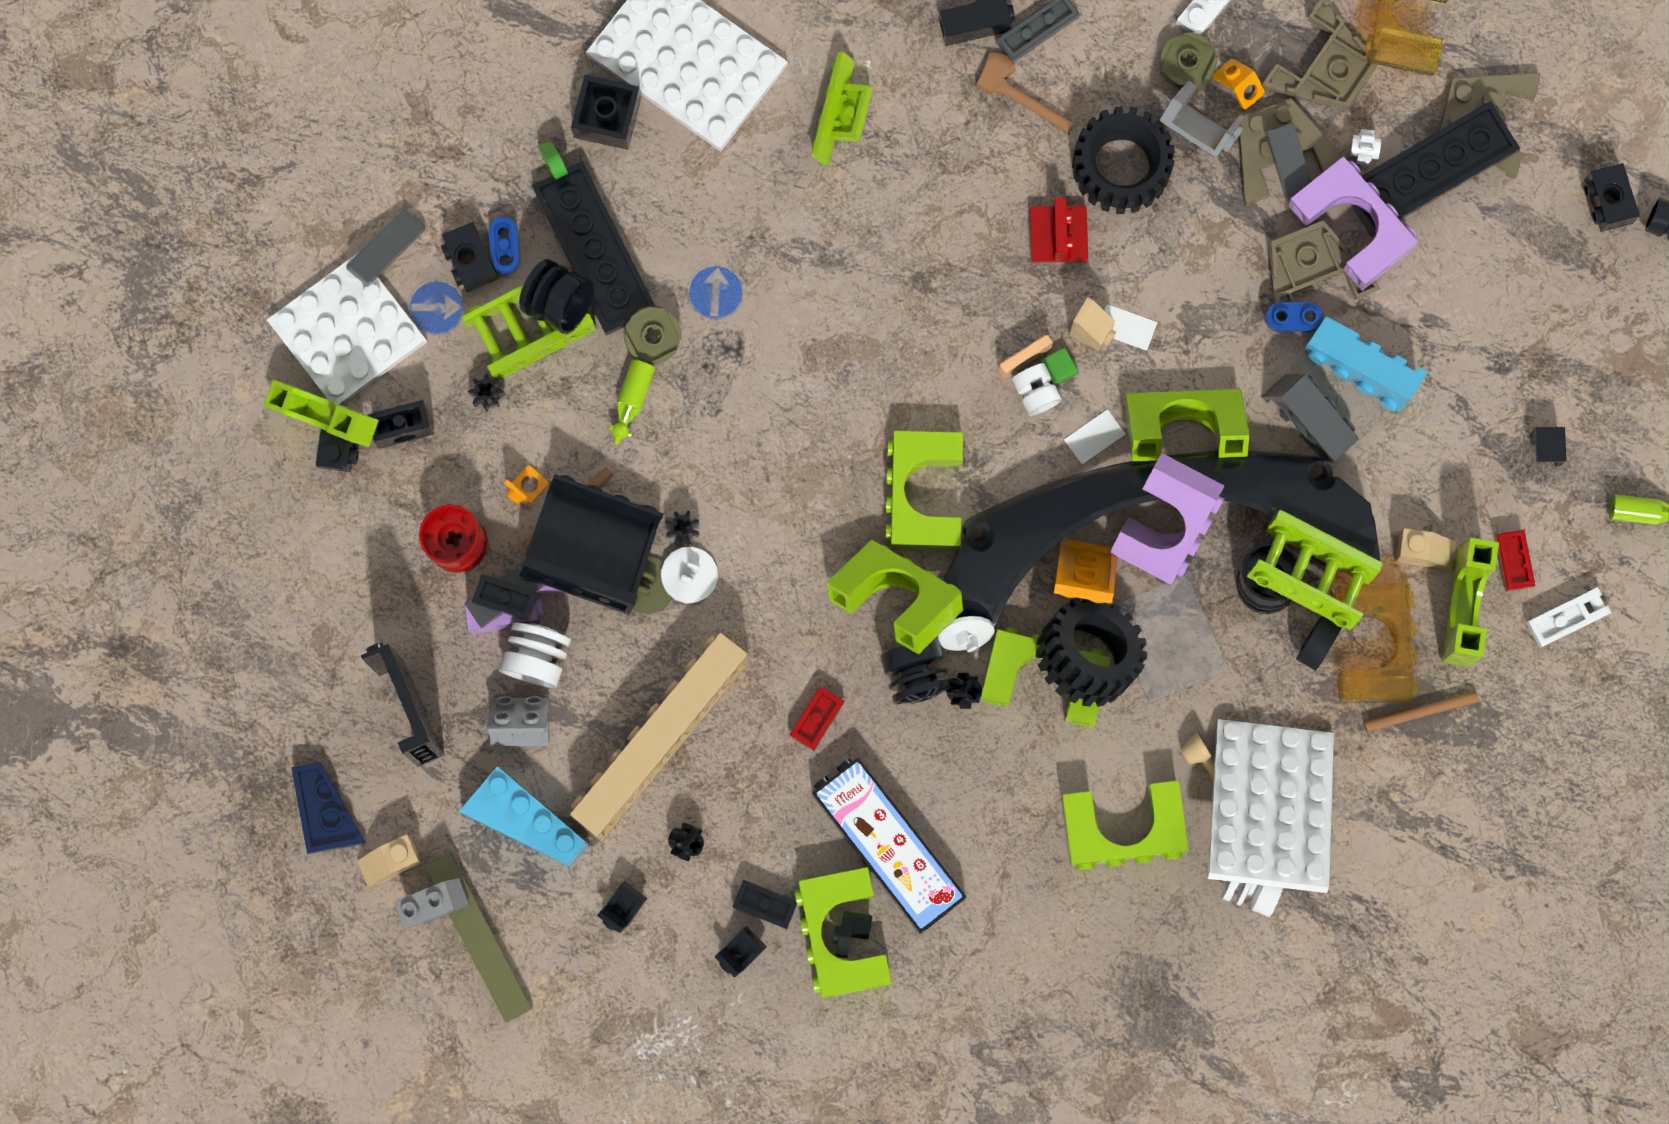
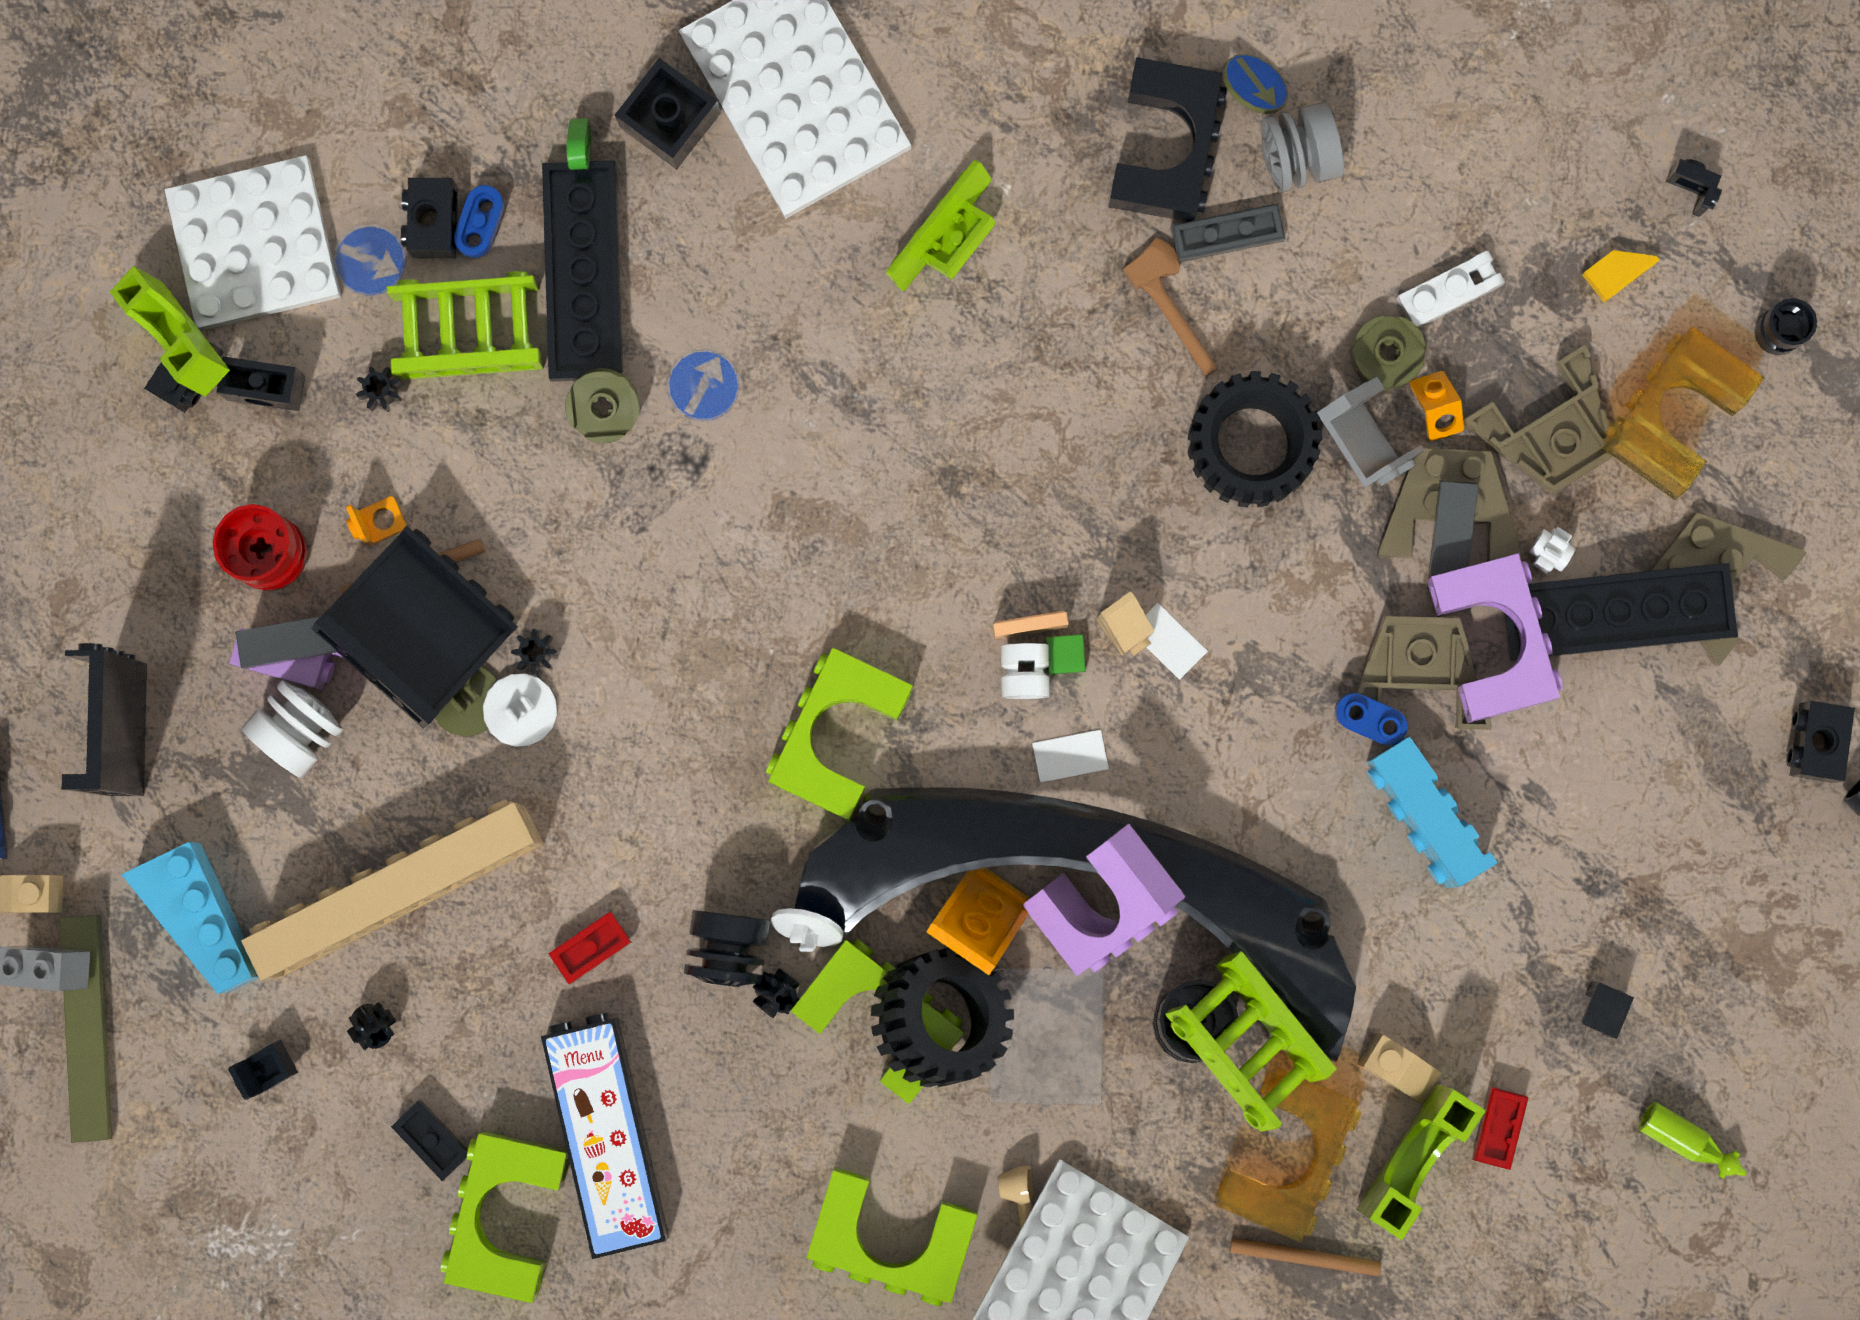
camera: 25 degrees right, 5 degrees up
(385, 247) = (338, 164): dark grey tile -> none
(504, 597) = (282, 647): black plate -> none
(519, 721) = (243, 795): light grey bracket -> none
(556, 296) = (503, 312): black wheel -> none
(632, 397) = (545, 470): lime wheel -> none
(740, 952) = (375, 1184): black bracket -> none
(852, 925) = (518, 1209): black bracket -> none
(880, 568) = (741, 804): lime arch -> none
(1059, 233) = (1139, 493): red bracket -> none
(1218, 409) = (1228, 789): lime arch -> none
(1313, 415) = (1338, 847): dark grey wedge -> none
(1318, 643) = (1216, 1127): black tyre -> none
(1568, 618) = (1531, 1225): white plate -> none

